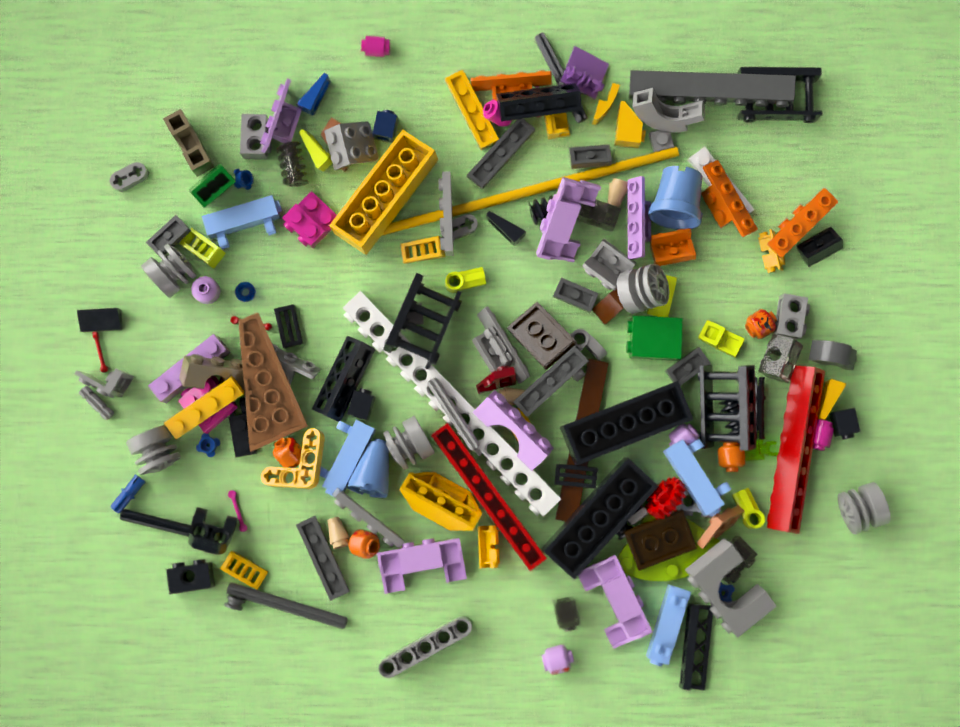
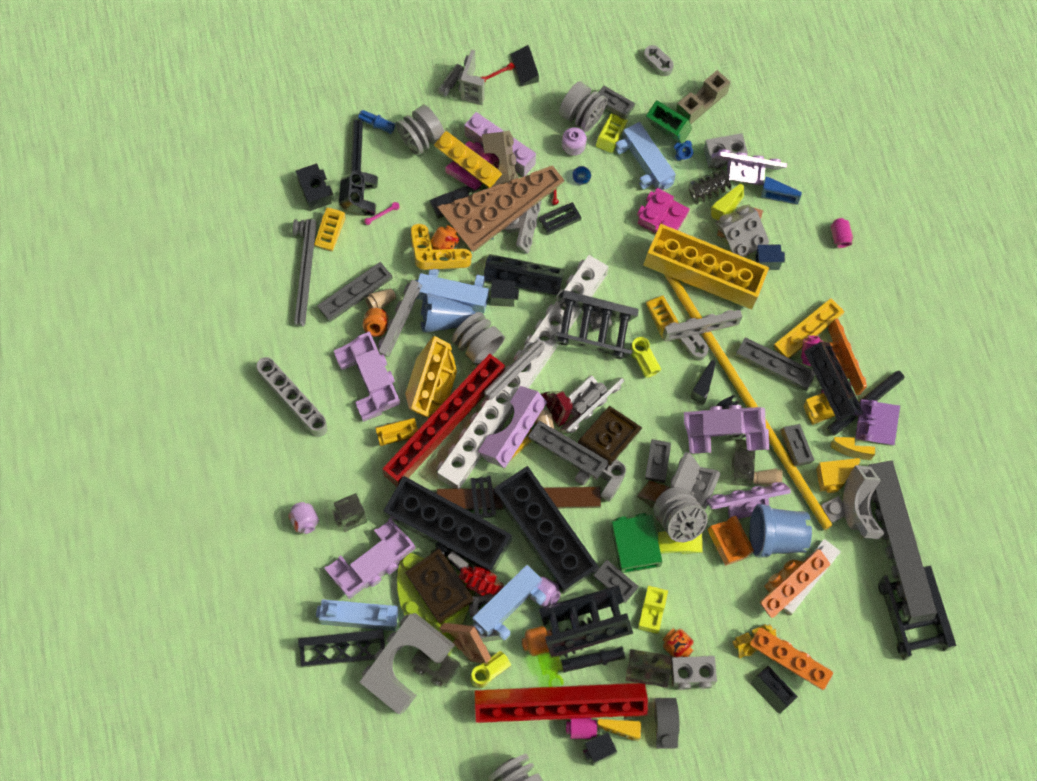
camera: 75 degrees right, 15 degrees down
(210, 451) = (435, 171): blue plate -> none
(728, 589) = (404, 668): blue plate -> none

